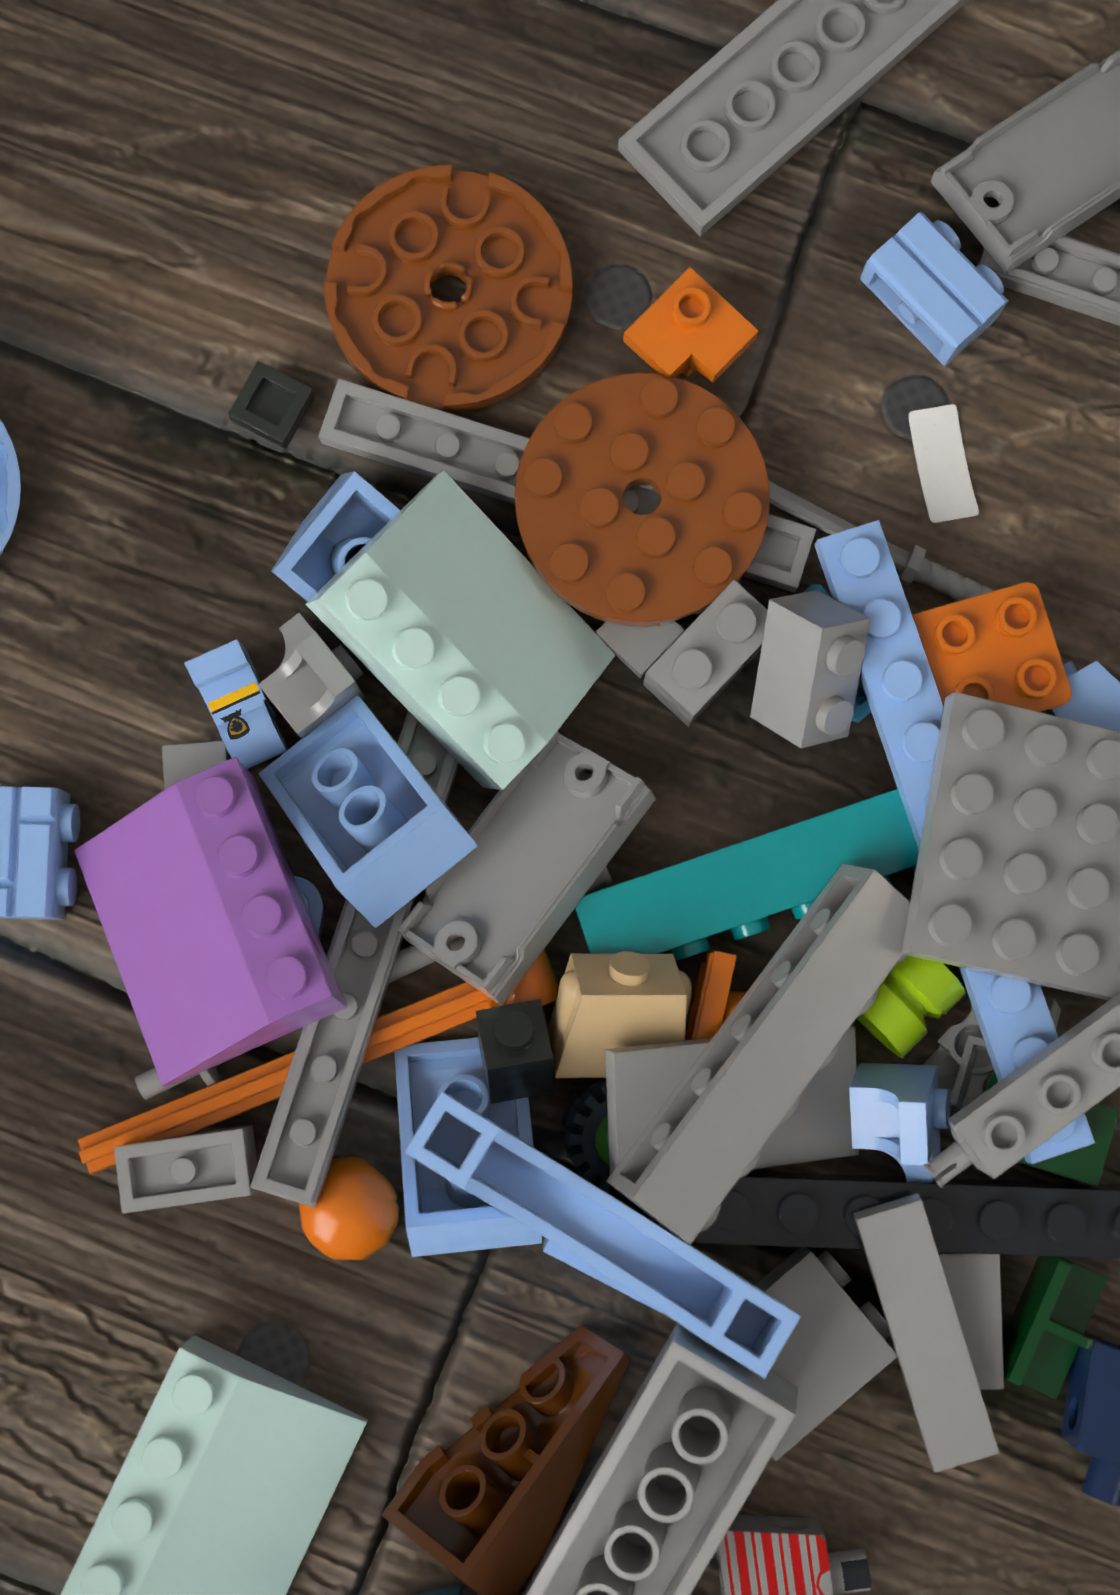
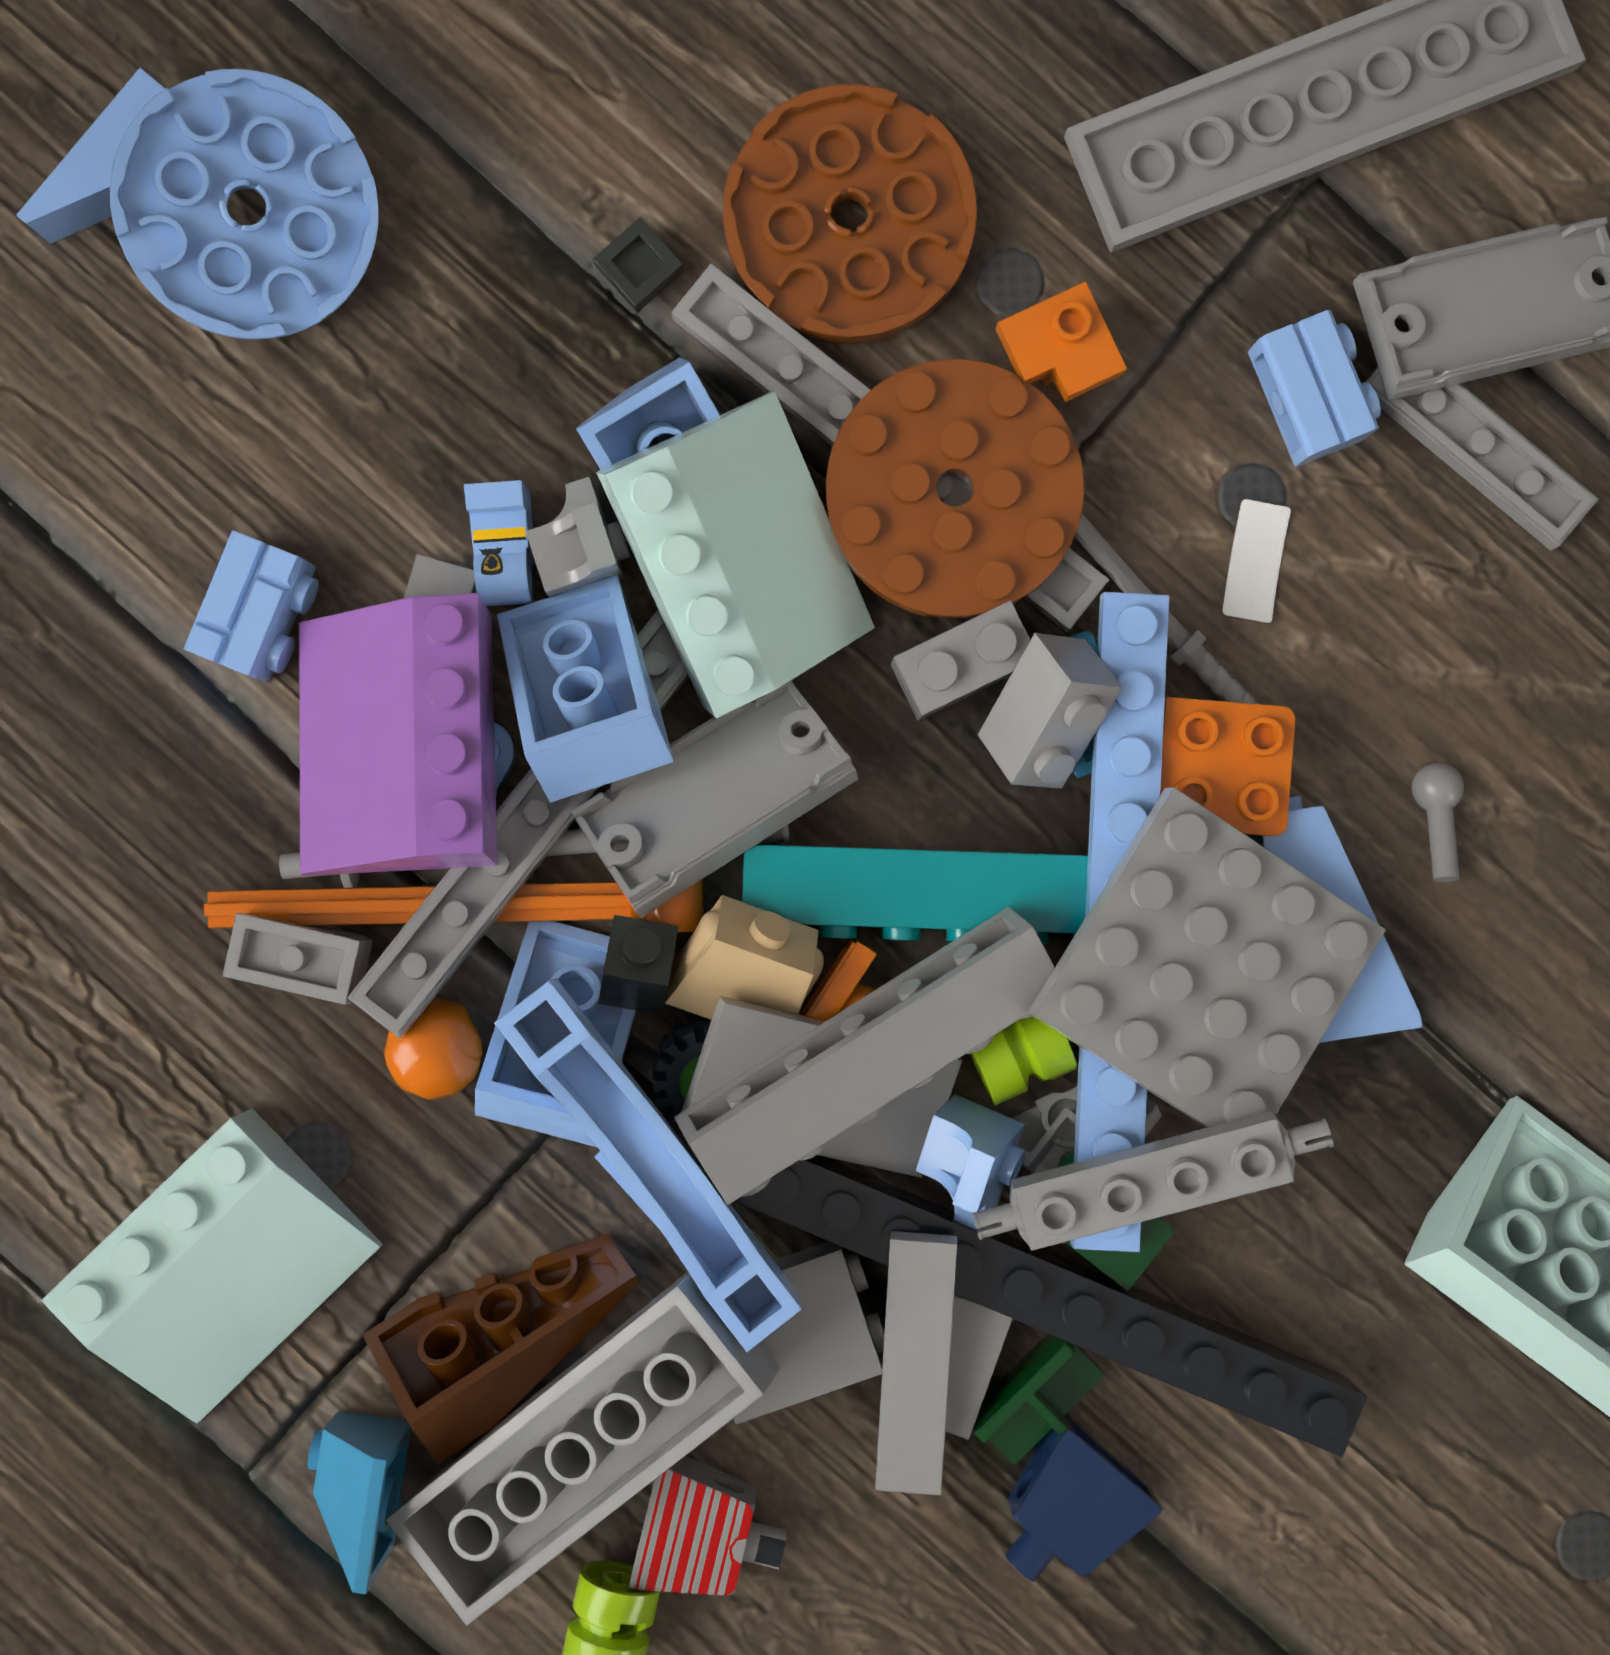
camera: 20 degrees right, 5 degrees up
(639, 645) = (900, 628): light grey tile -> none

